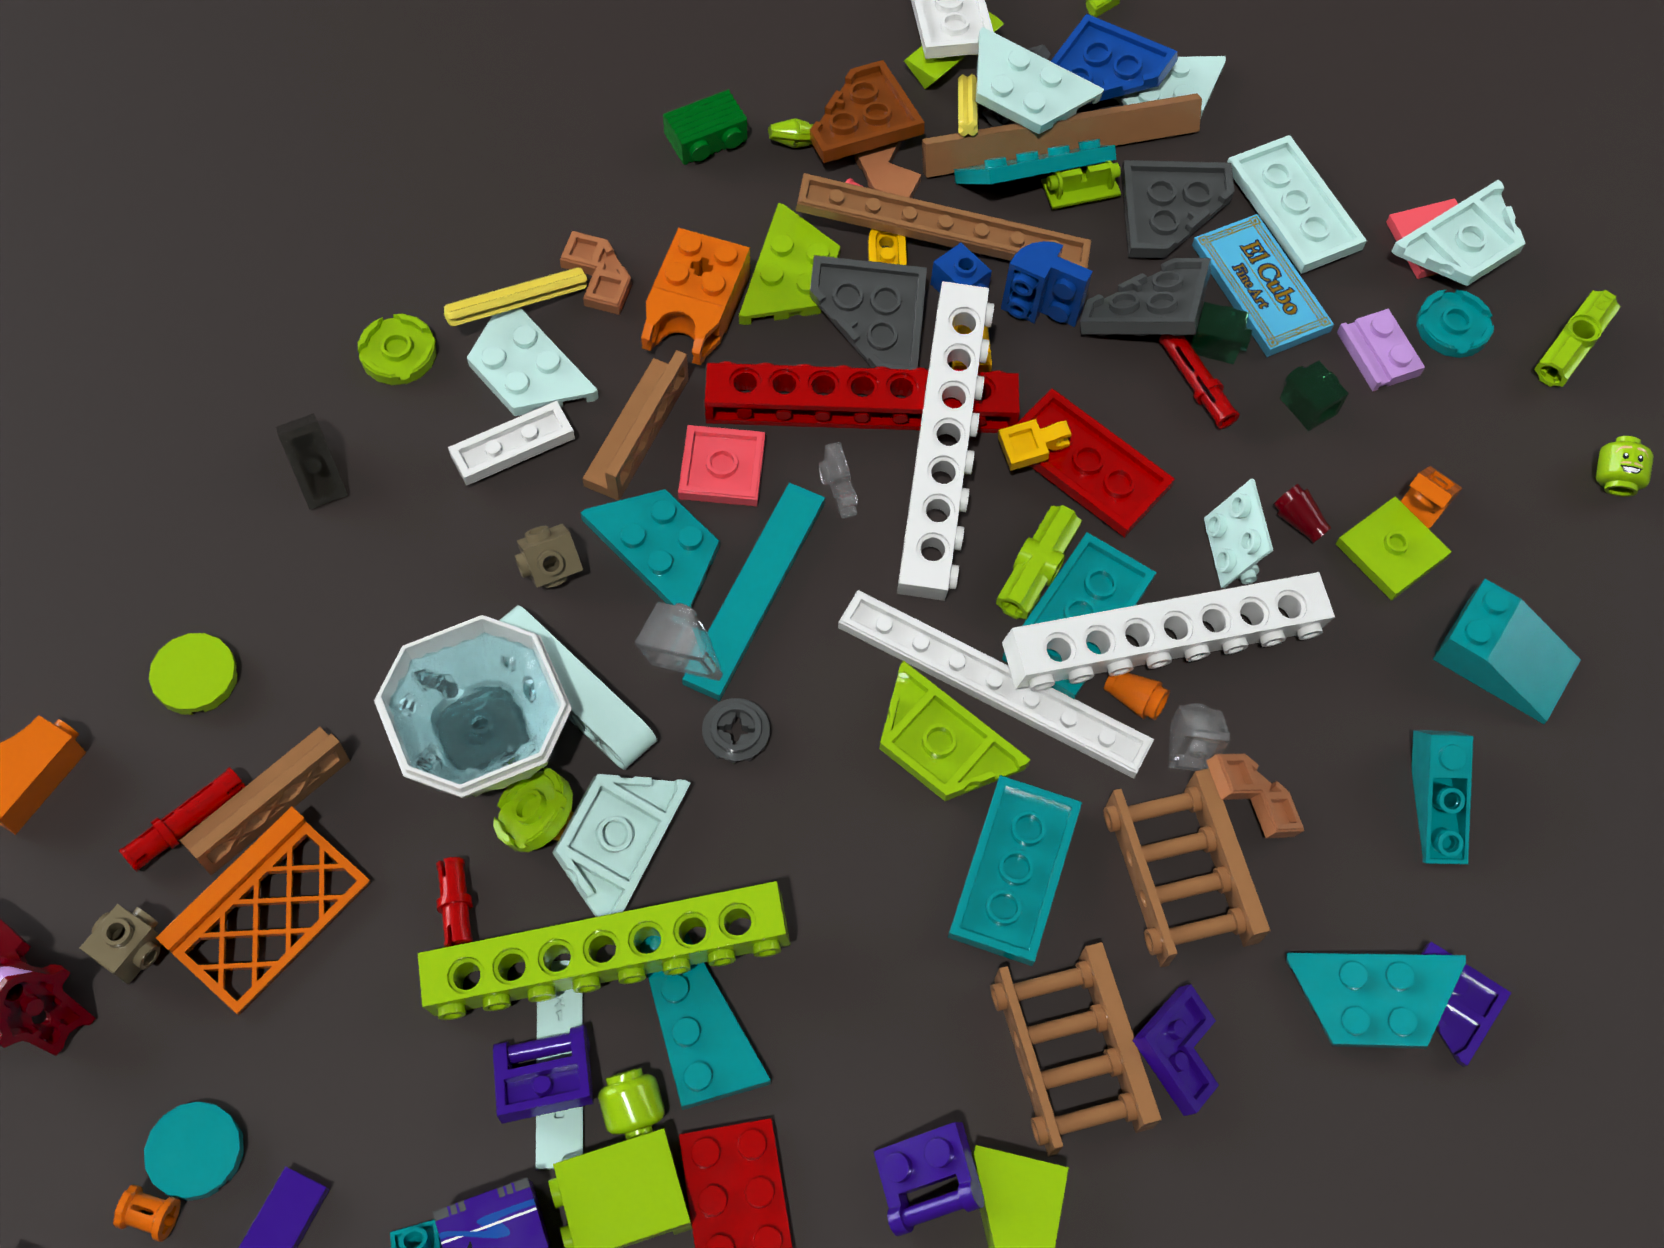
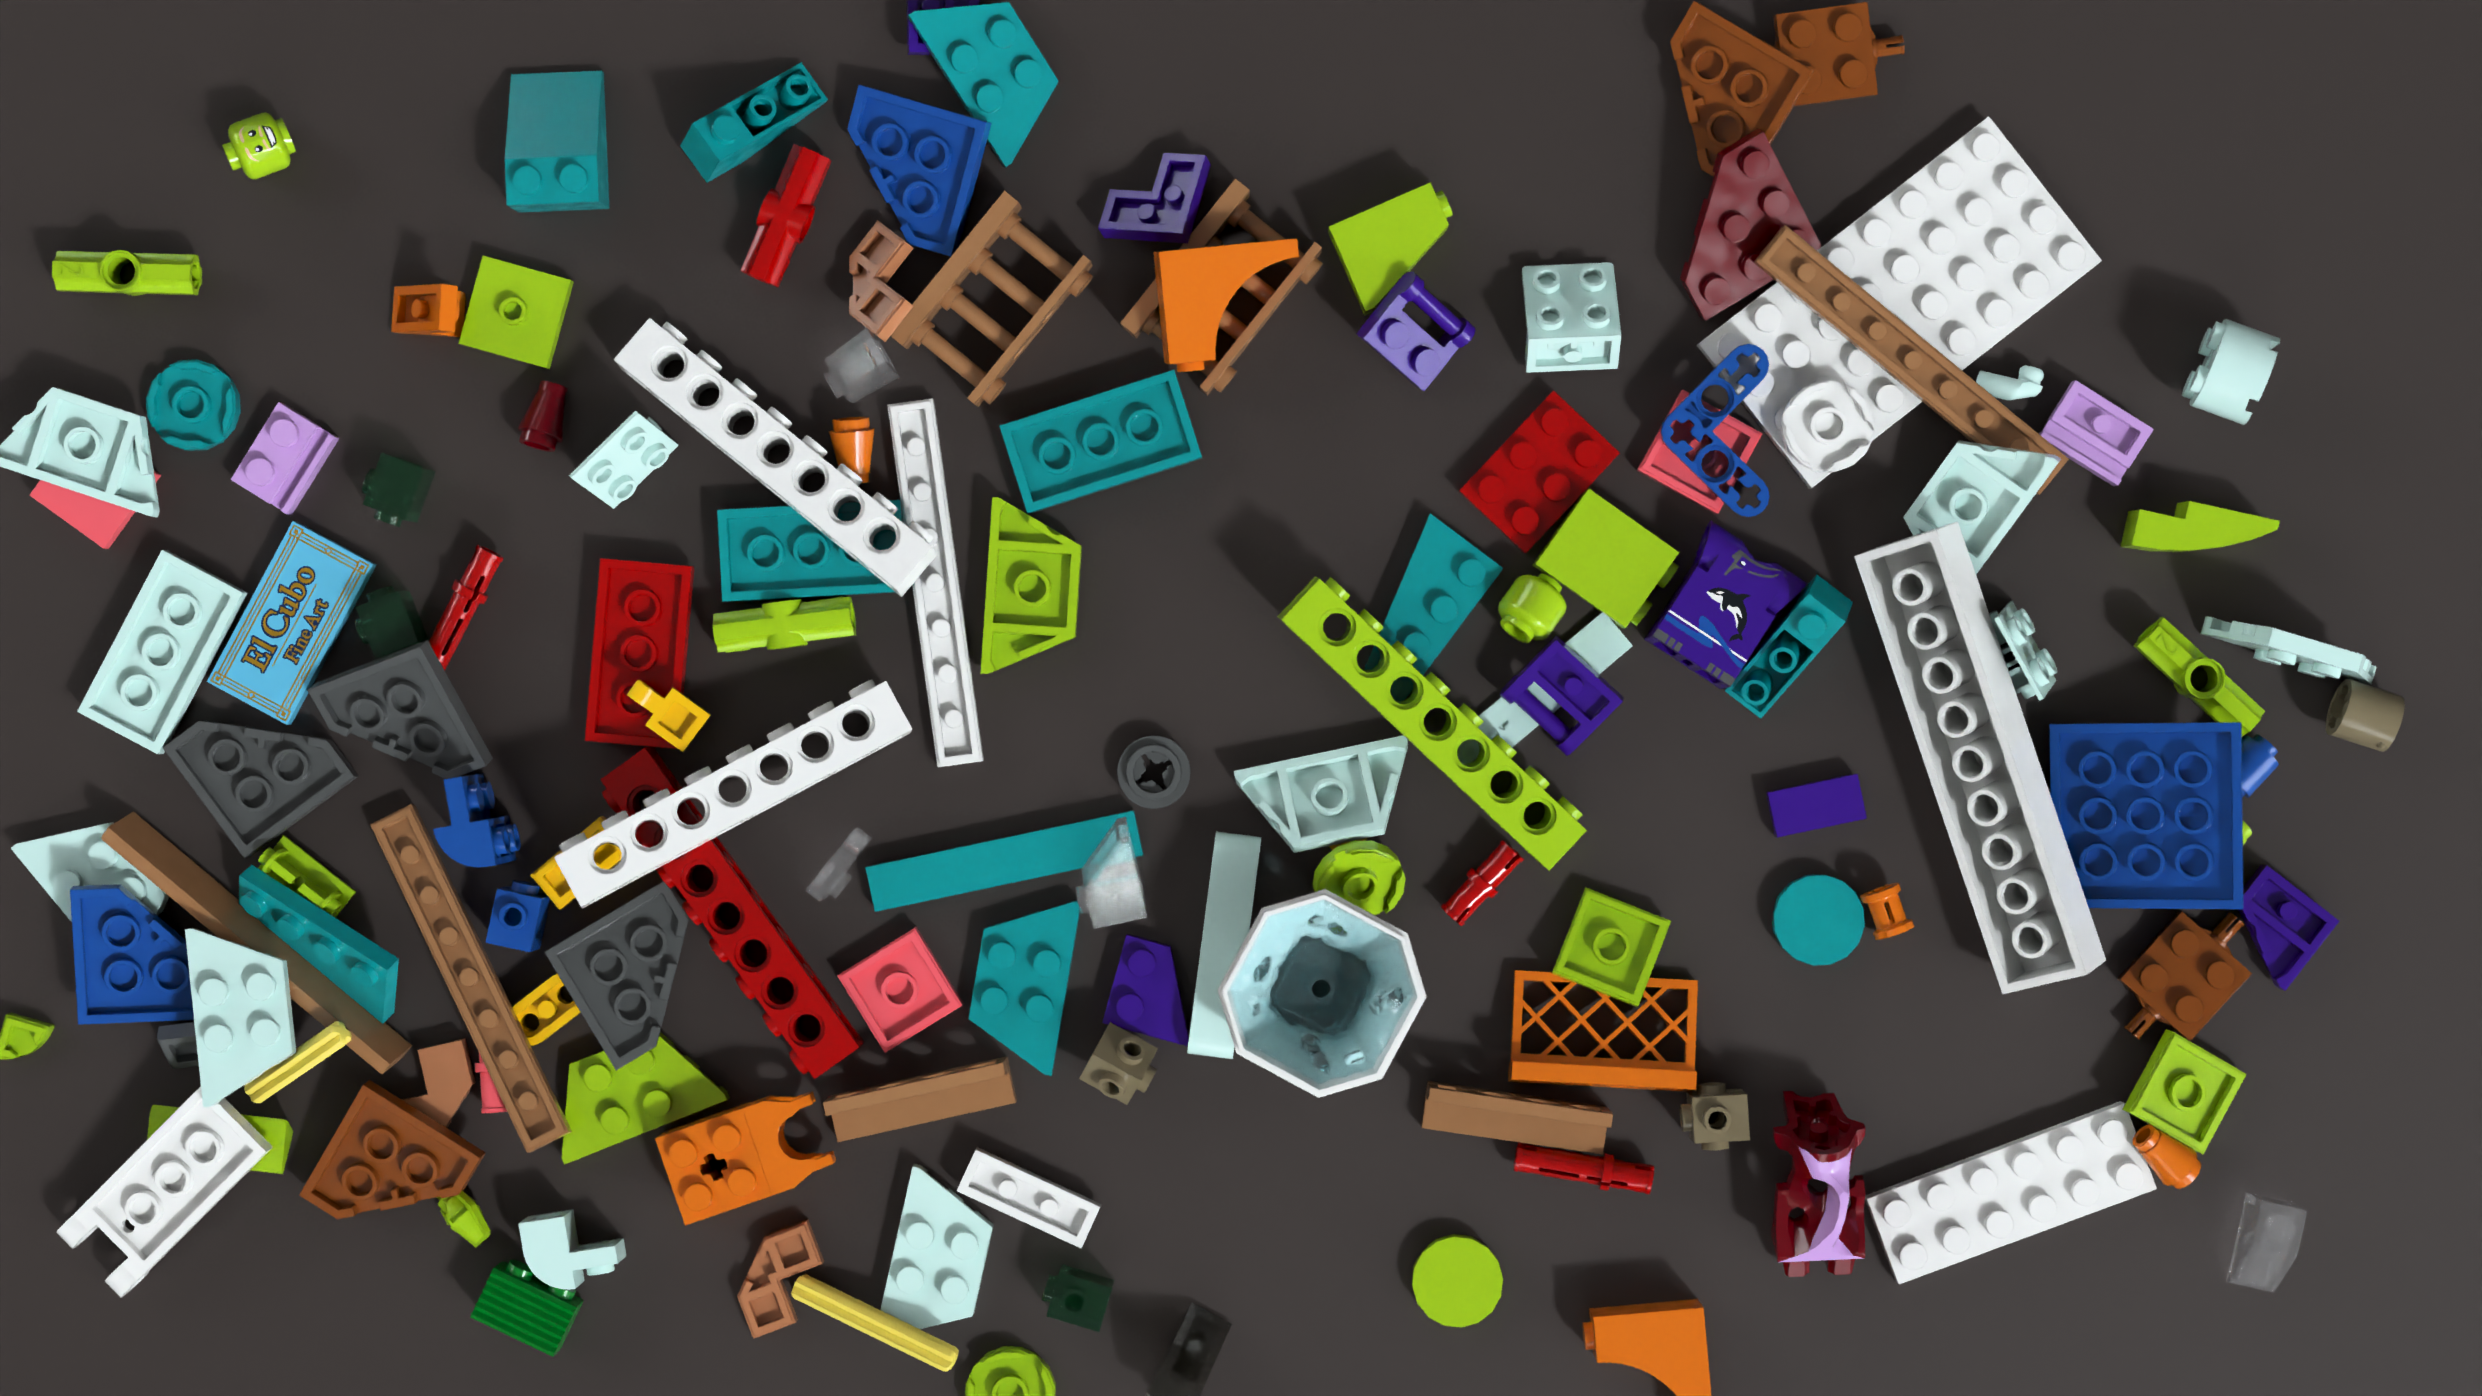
camera: 120 degrees left, 25 degrees up
(320, 964) = (1611, 947): none -> lime plate
(417, 424) = (1078, 1297): none -> clear green brick
(584, 615) = (1147, 992): none -> dark purple wing
(724, 162) = (554, 1251): none -> light aqua brick
(1091, 1015) = (1196, 289): none -> orange arch
(1330, 892) = (921, 163): none -> blue plate
(1351, 767) = (785, 215): none -> red piece

